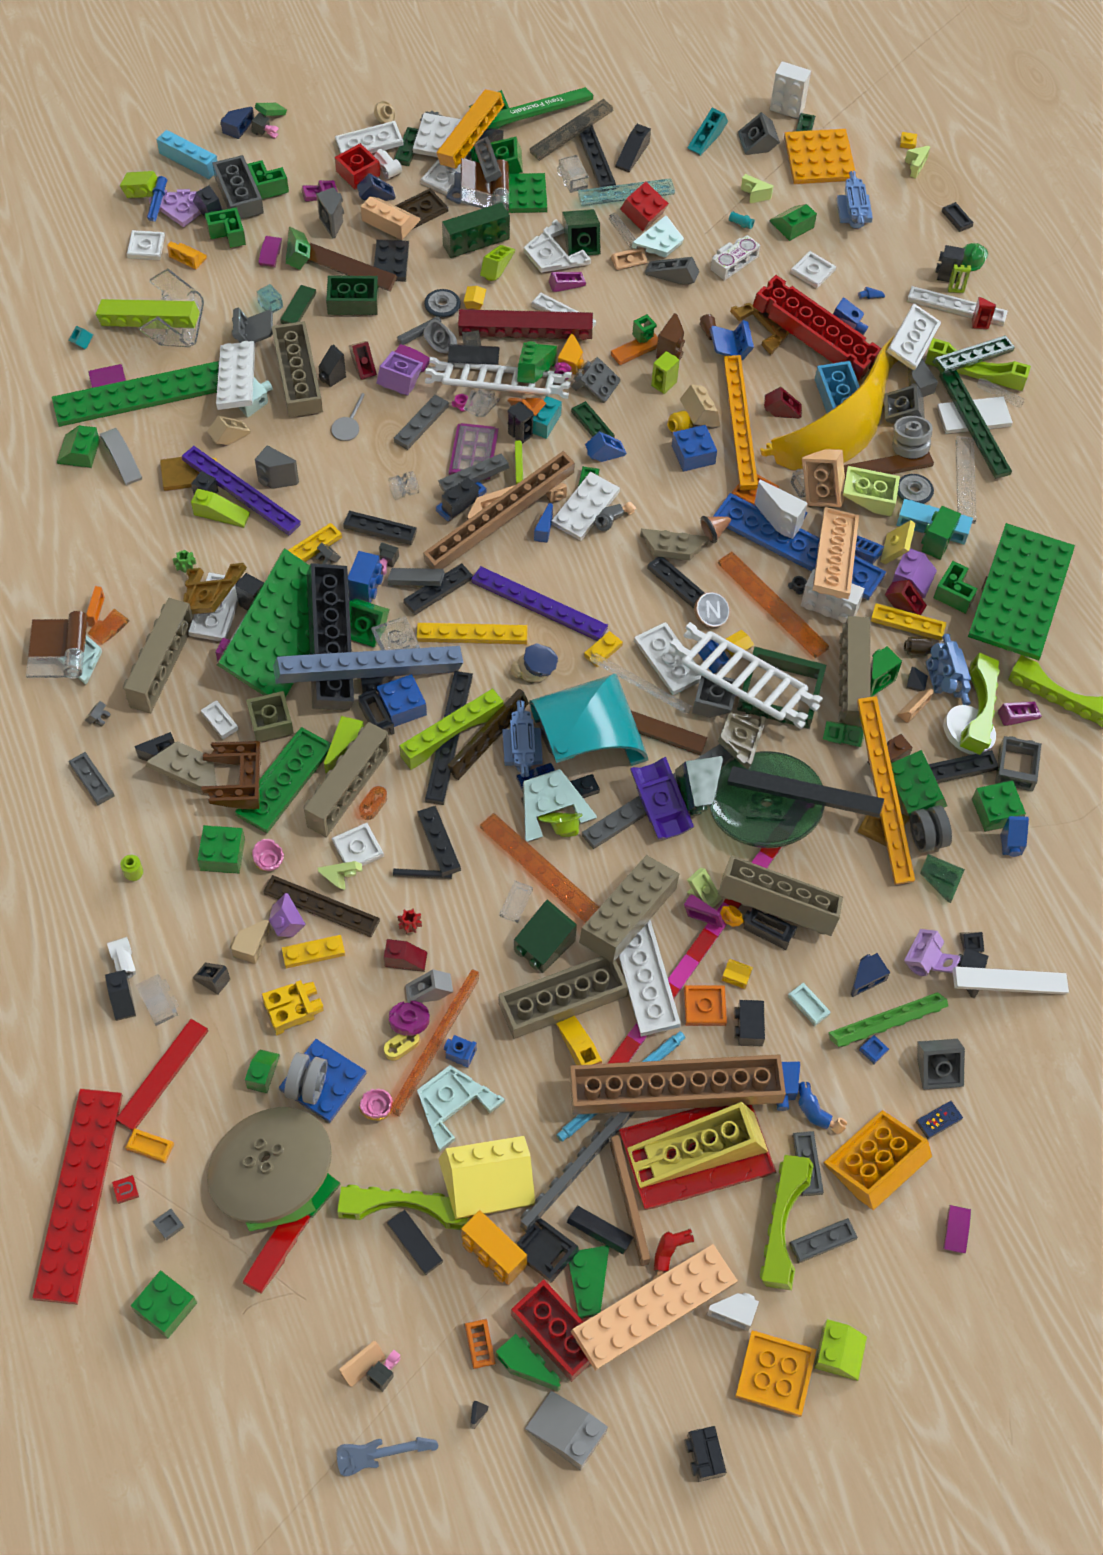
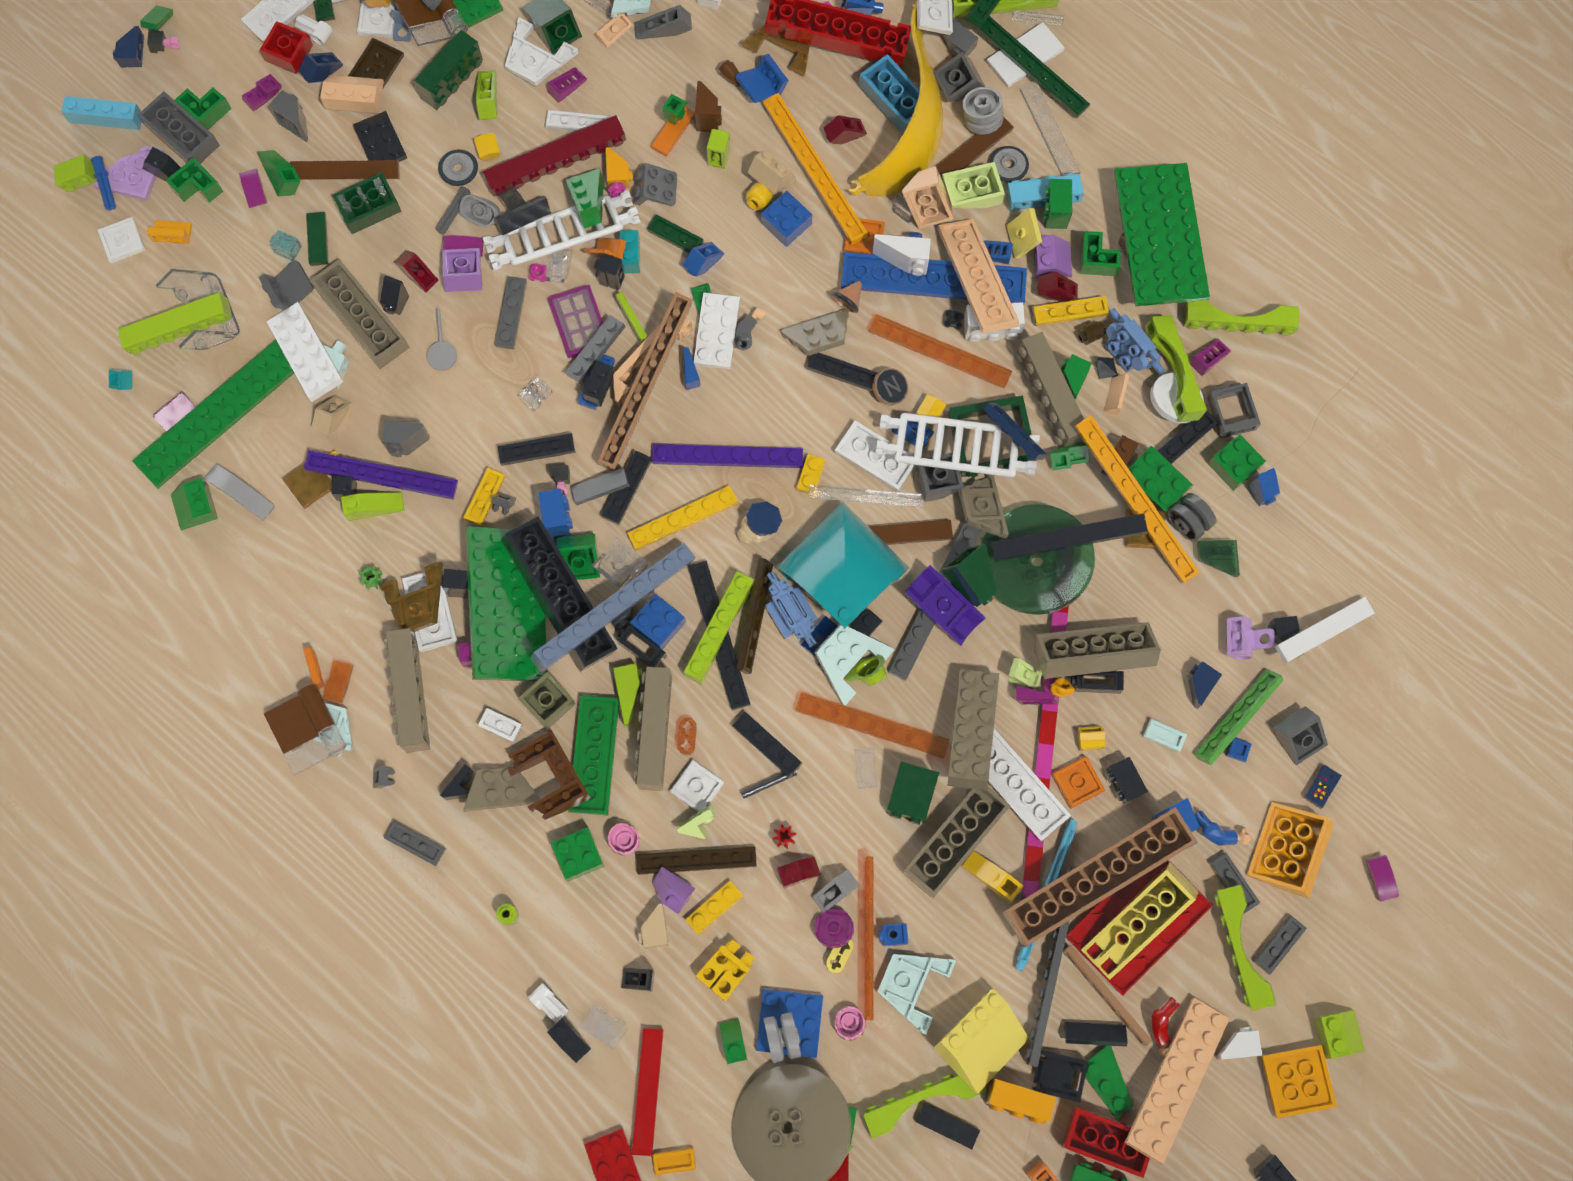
camera: 25 degrees left, 15 degrees up
(801, 683) = (1020, 437): none -> dark blue plate
(972, 941) = (1272, 605): black slope -> none

